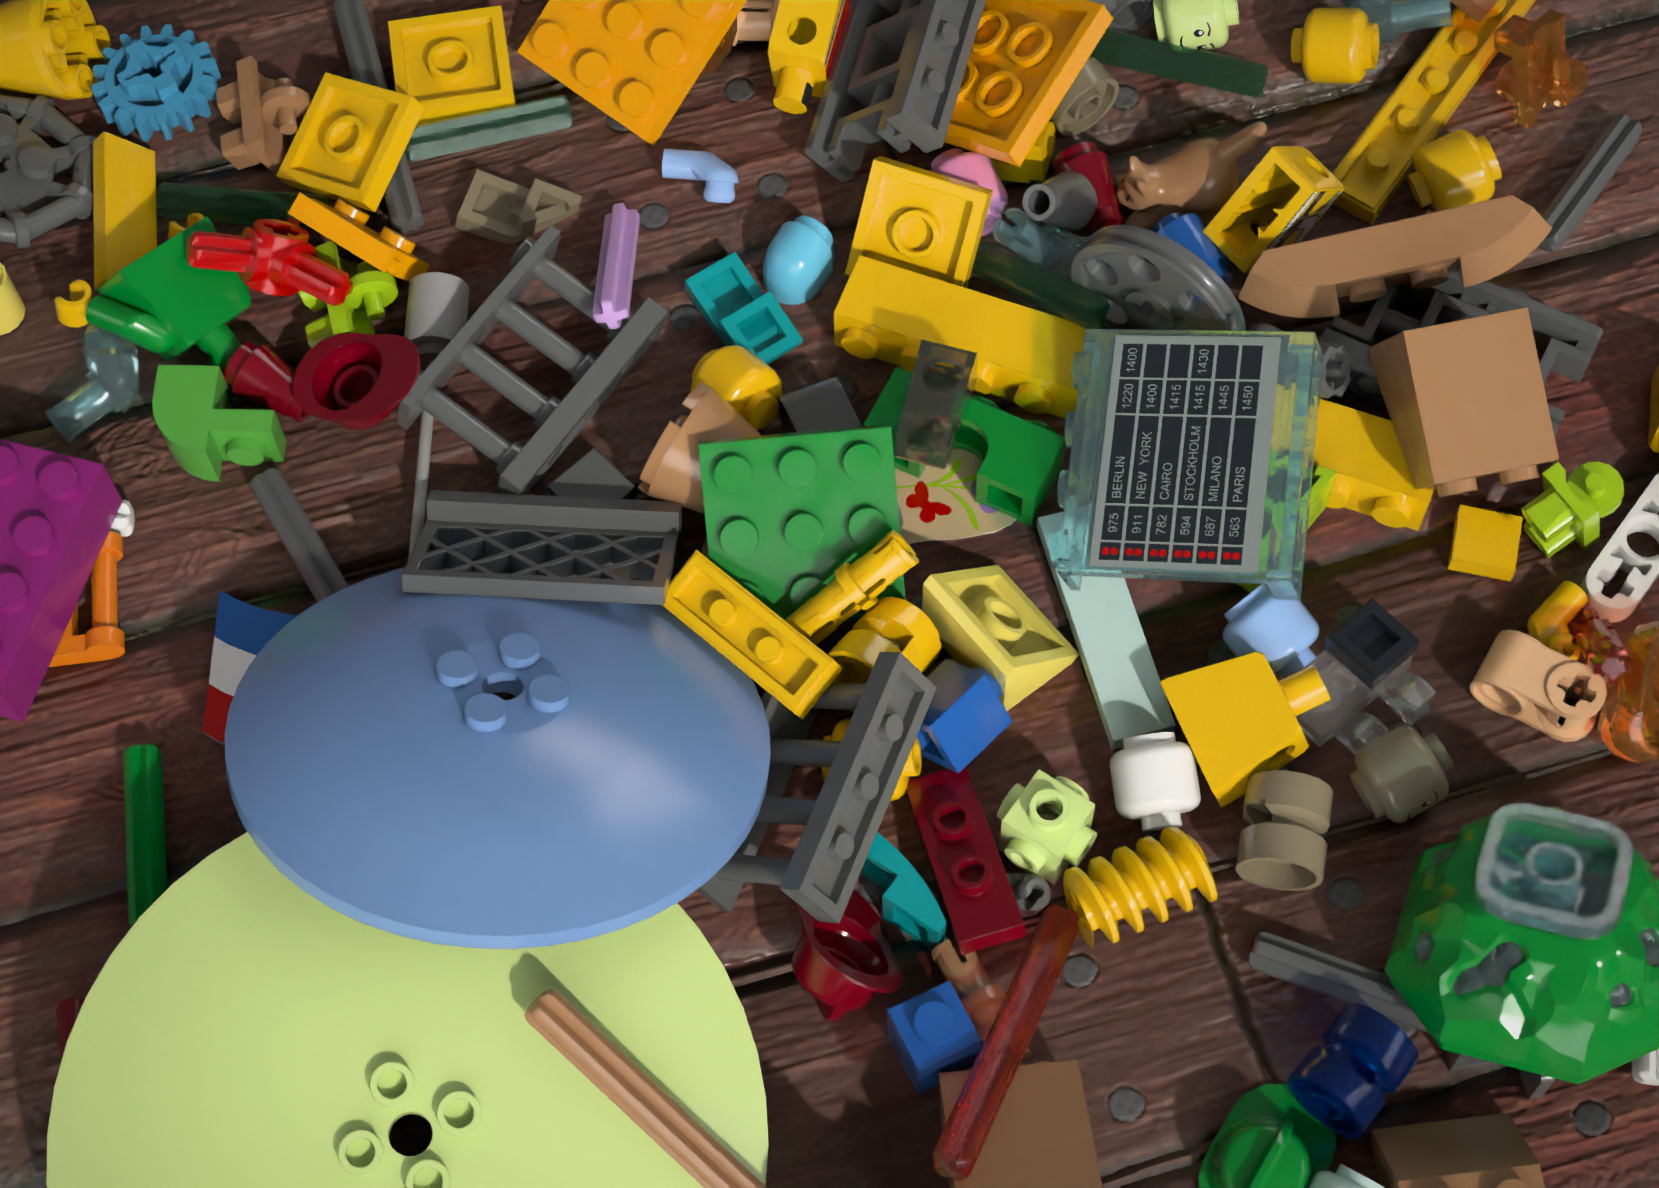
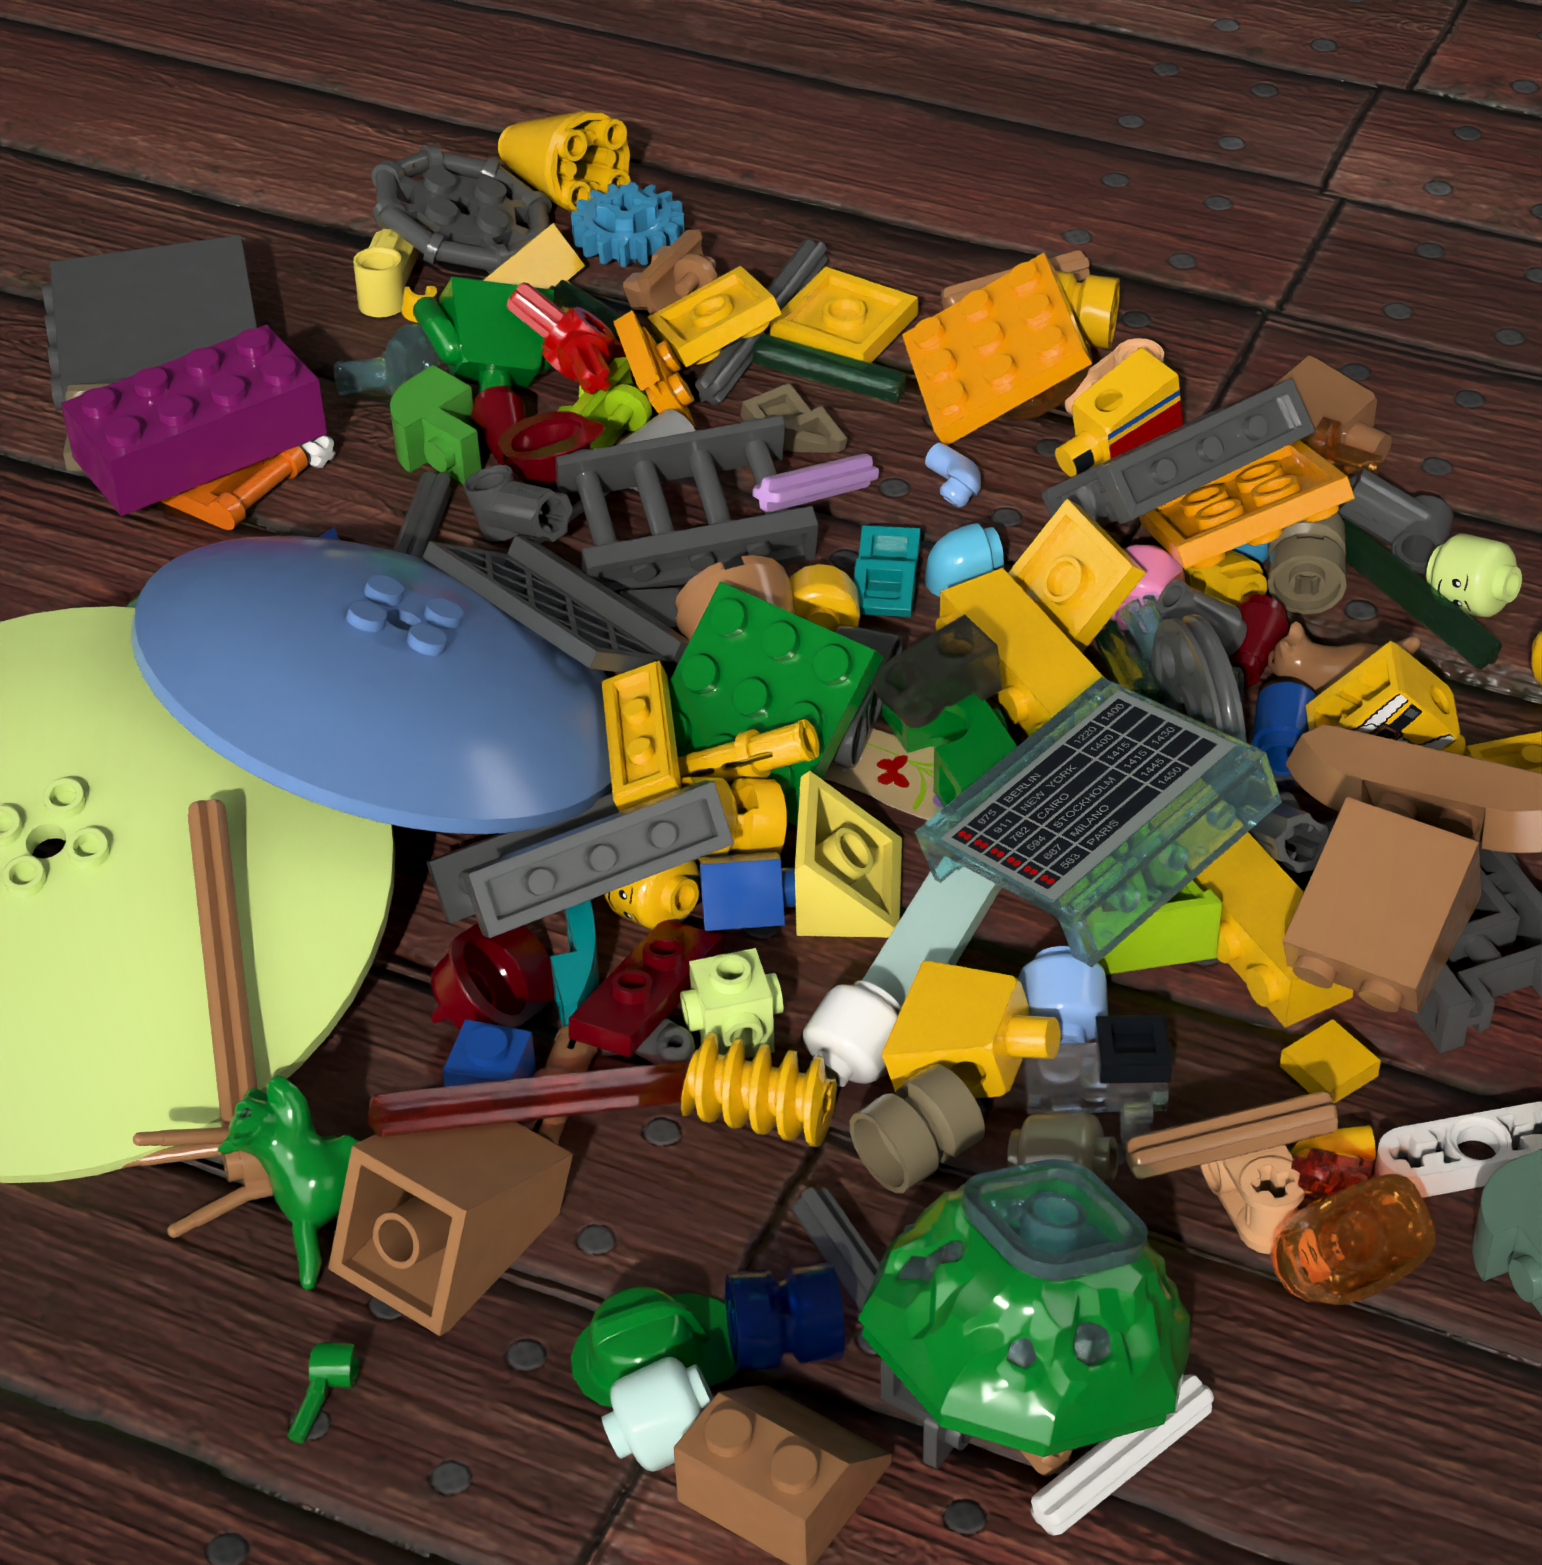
camera: 40 degrees right, 20 degrees down
(377, 468) = (515, 508): none -> dark grey piece
(1523, 674) = (1231, 1135): none -> medium nougat axle
(1572, 507) = (1413, 1064): lime hips -> none

